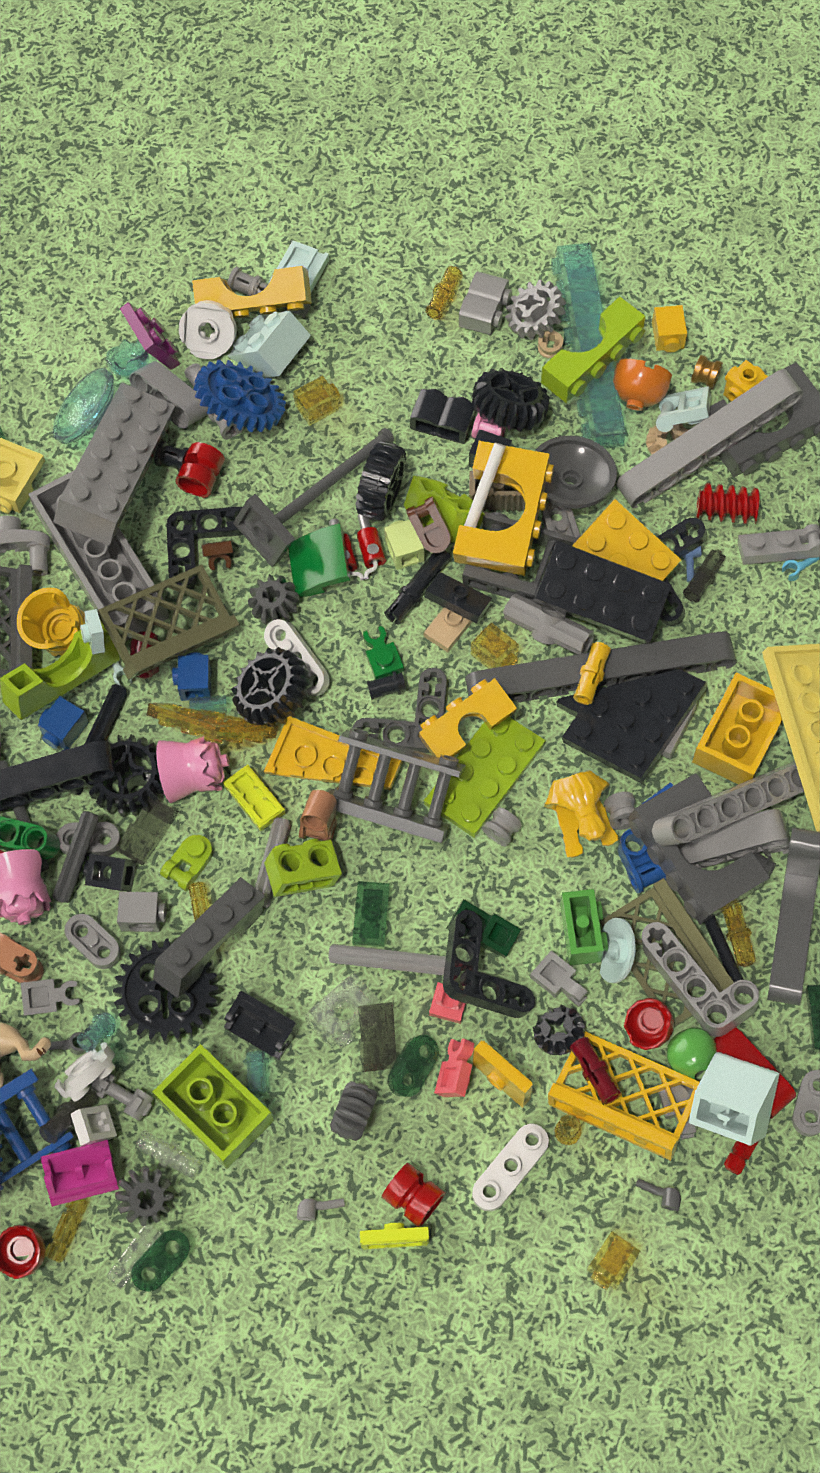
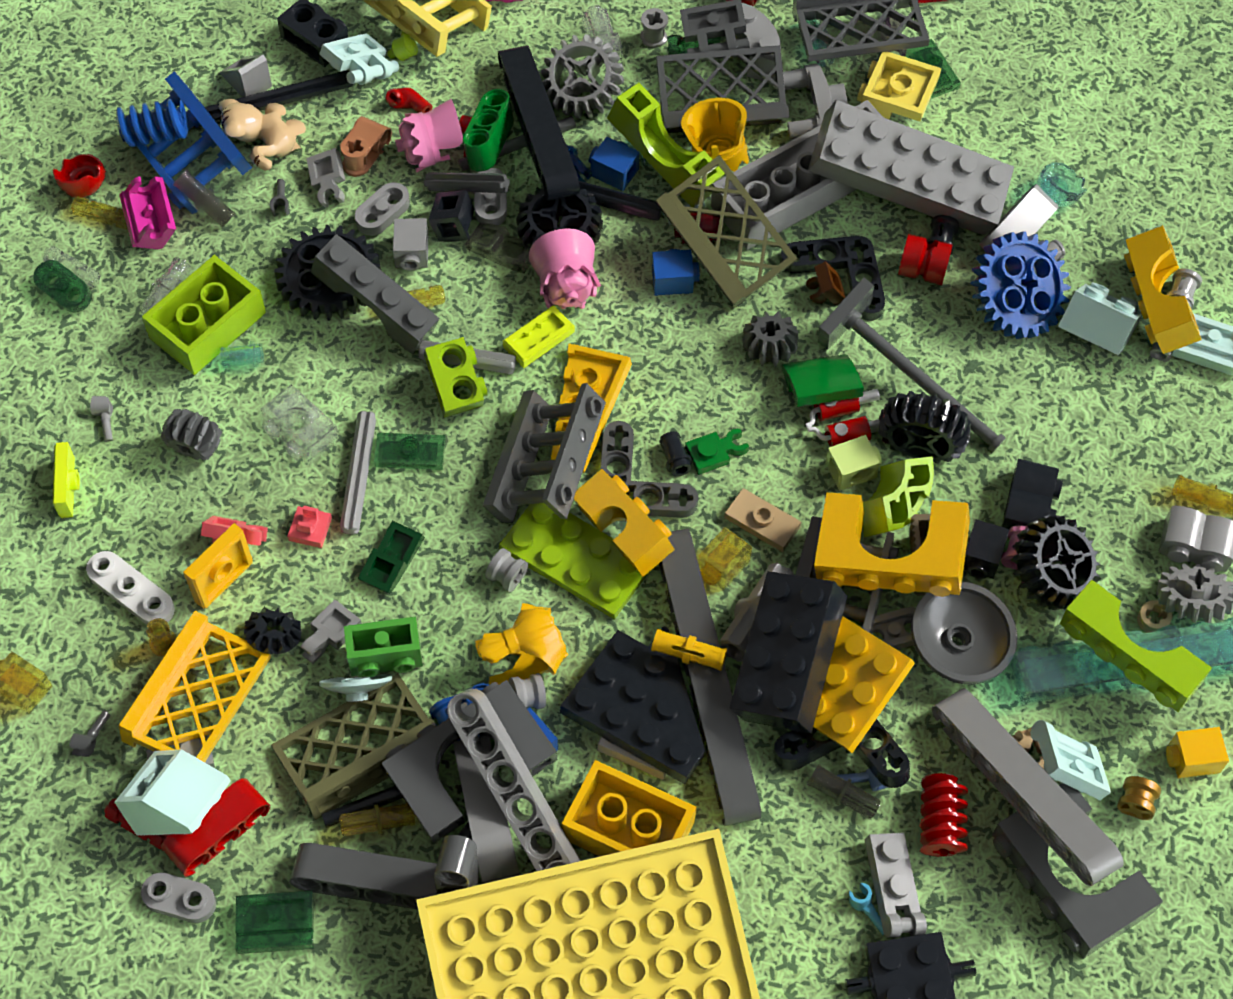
camera: 85 degrees right, 5 degrees down
(84, 406) = (987, 144): clear light blue dish -> none
(85, 1071) = (242, 207): white plate -> none
(93, 632) = (697, 157): light aqua plate -> none
(93, 1124) = (190, 217): white bracket -> none
(102, 1026) = (287, 217): clear light blue pin -> none
(131, 1202) = (122, 265): dark grey gear -> none
(136, 1104) = (235, 230): light grey bar -> none
(150, 335) = (1086, 196): plate -> none
(193, 851) = (477, 291): lime plate -> none
(208, 703) = (642, 280): clear light blue pin -> none
(209, 723) = (607, 282): clear yellow plate -> none
(220, 319) = (1120, 259): white plate -> none
(260, 1025) = (292, 355): black hinge -> none
(271, 687) = (658, 336): black gear -> none
(296, 644) = (702, 365): white plate -> none
(316, 400) = (1033, 367): clear yellow brick -> none
(319, 816) = (506, 388): nougat piece -> none
(377, 1037) = (269, 452): clear smoke slope -> none
(410, 594) = (790, 473): black pin -> none
(413, 1064) = (240, 492): clear green plate -> none
(413, 1194) = (106, 491): red wheel -> none
(435, 536) = (858, 478): plate -> none
(458, 597) = (785, 516): black plate -> none
(475, 980) = (323, 538): black beam -> none
(485, 485) = (913, 515): white bar -> none
(595, 1070) = (217, 657): dark red pin -> none
(639, 384) = (1100, 710): orange cylinder -> none
(649, 1023) = (271, 719): red hair -> none
(690, 1051) = (236, 757): bright green hair -> none
(691, 976) = (363, 725): light grey beam -> none
(742, 379) = (1130, 838): yellow brick -> none

